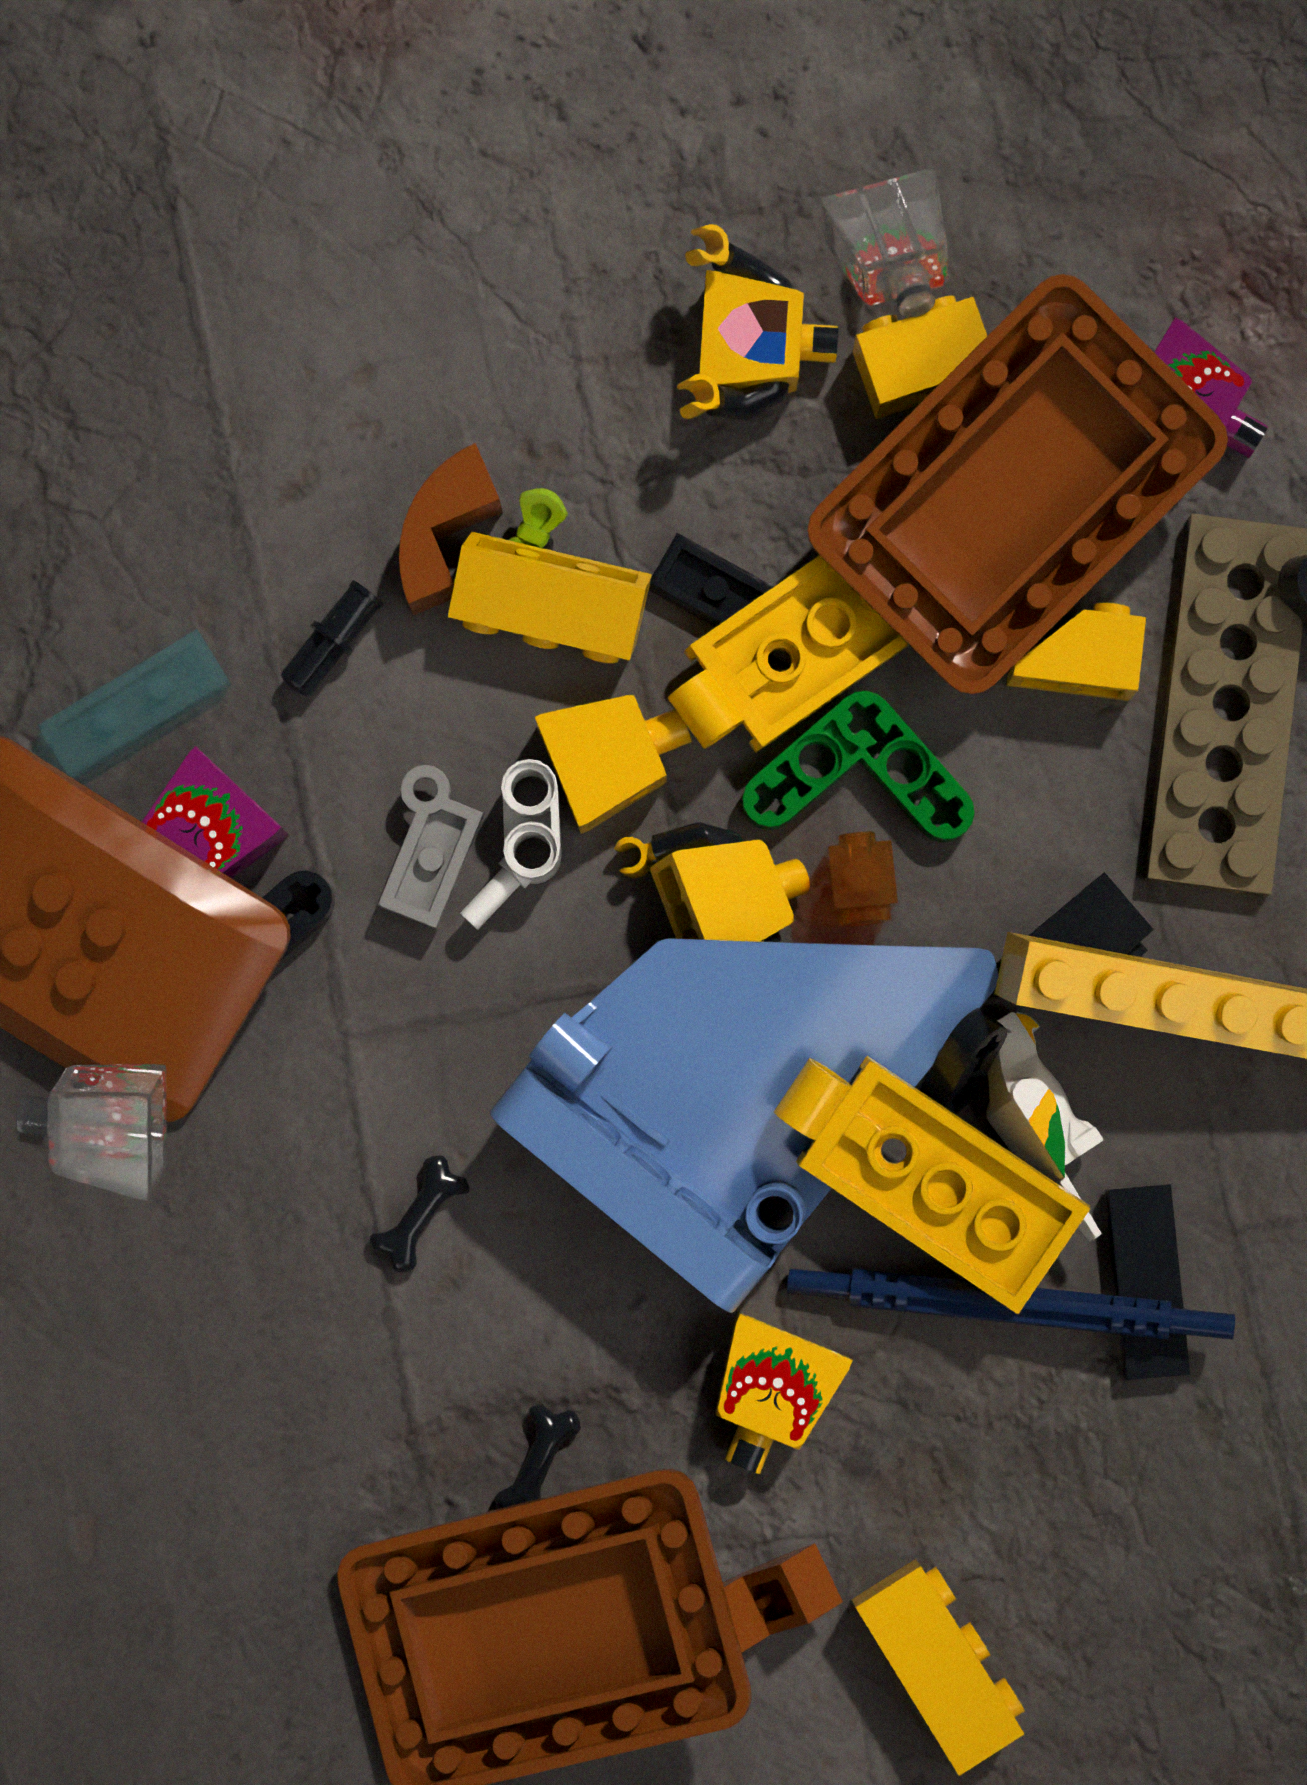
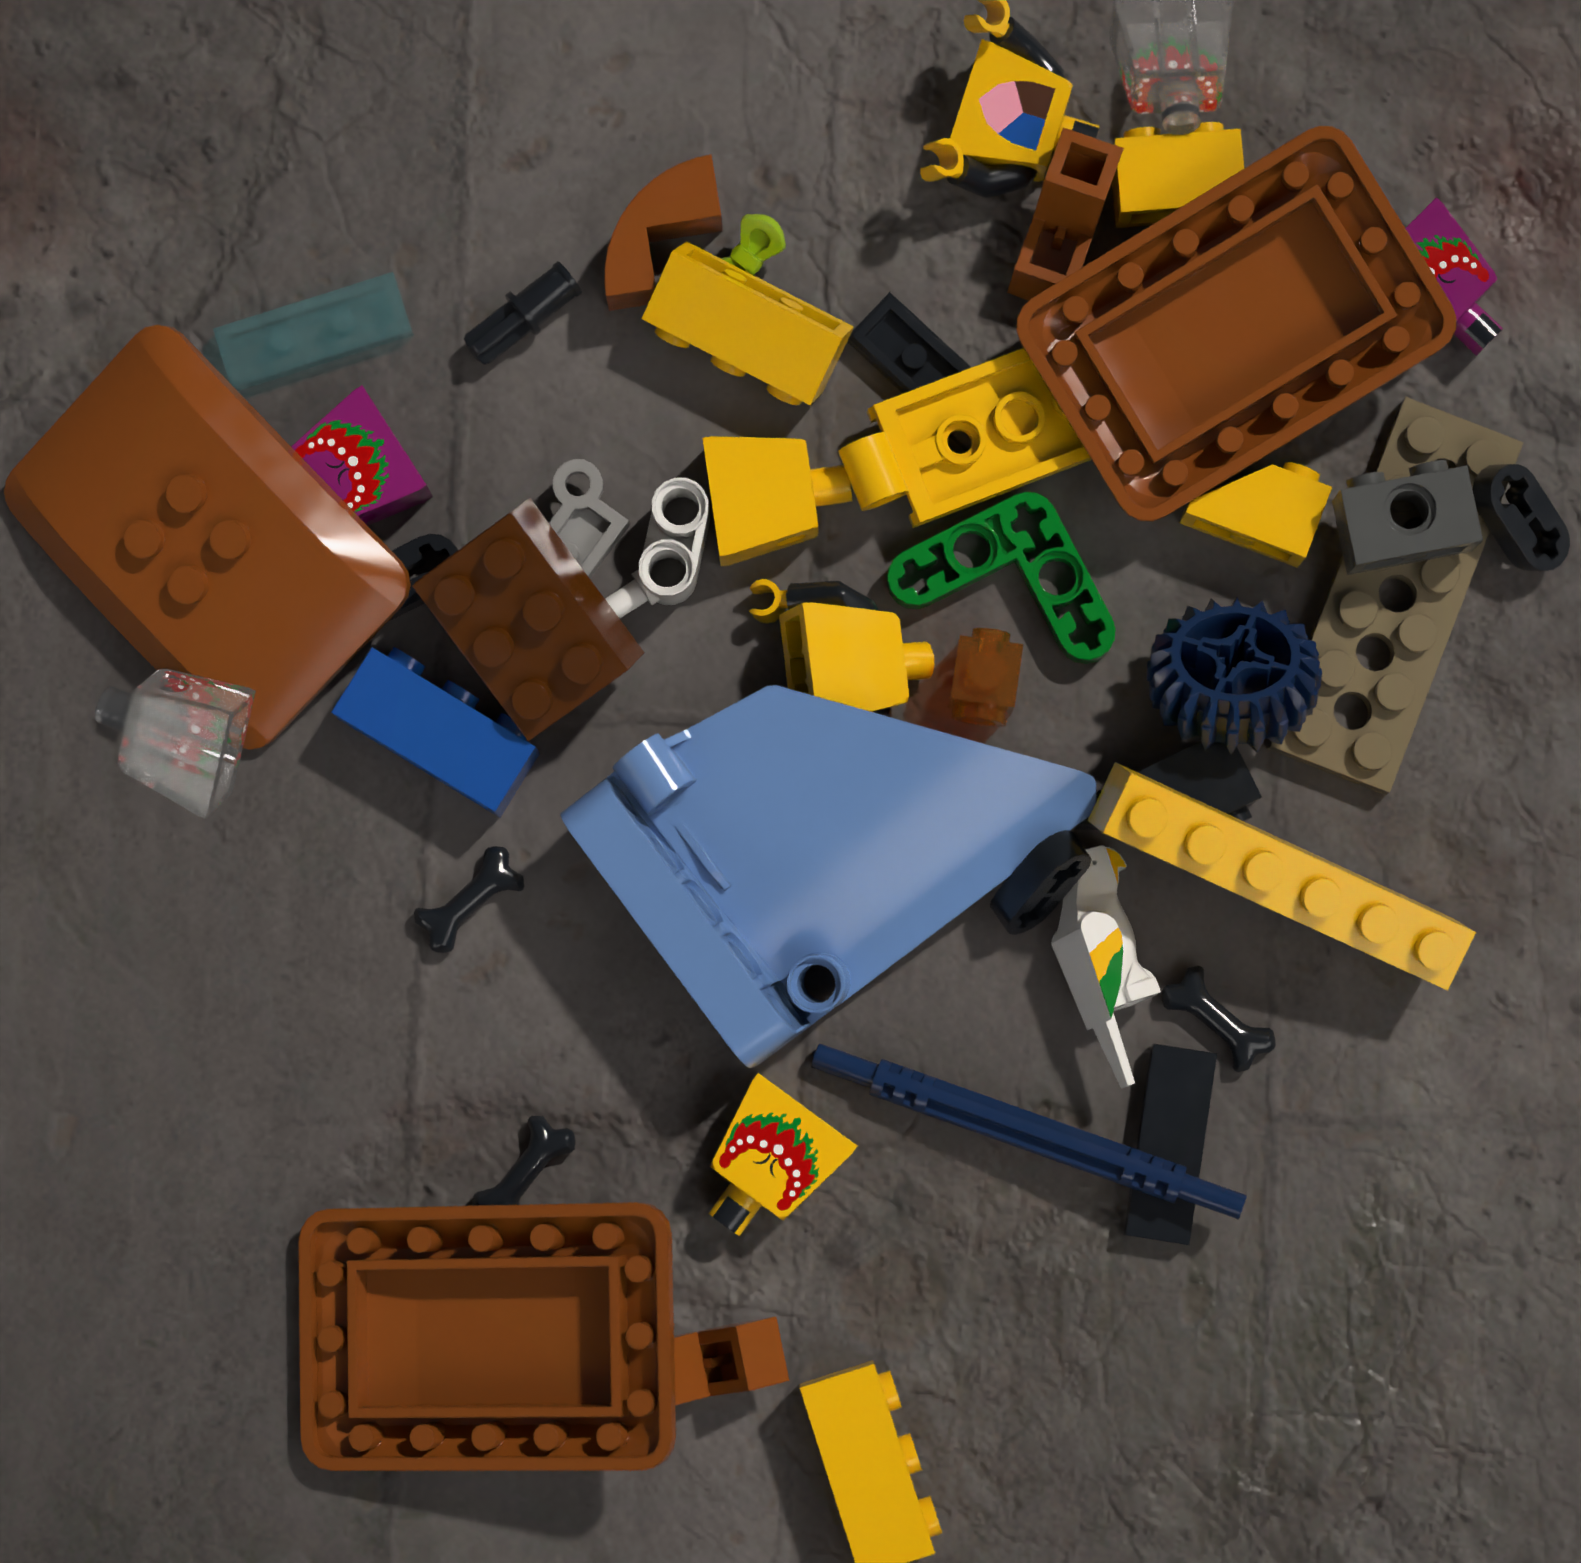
camera: 15 degrees right, 0 degrees up
(349, 1058) = (437, 729): none -> blue brick
(412, 932) = (529, 619): none -> reddish brown brick
(827, 418) = (1065, 212): none -> dark orange brick
(951, 1192) = (994, 1006): yellow hinge -> none
(1098, 820) = (1234, 675): none -> dark blue gear
(1189, 1163) = (1194, 998): none -> black piece
(1198, 657) = (1375, 541): none -> dark grey brick

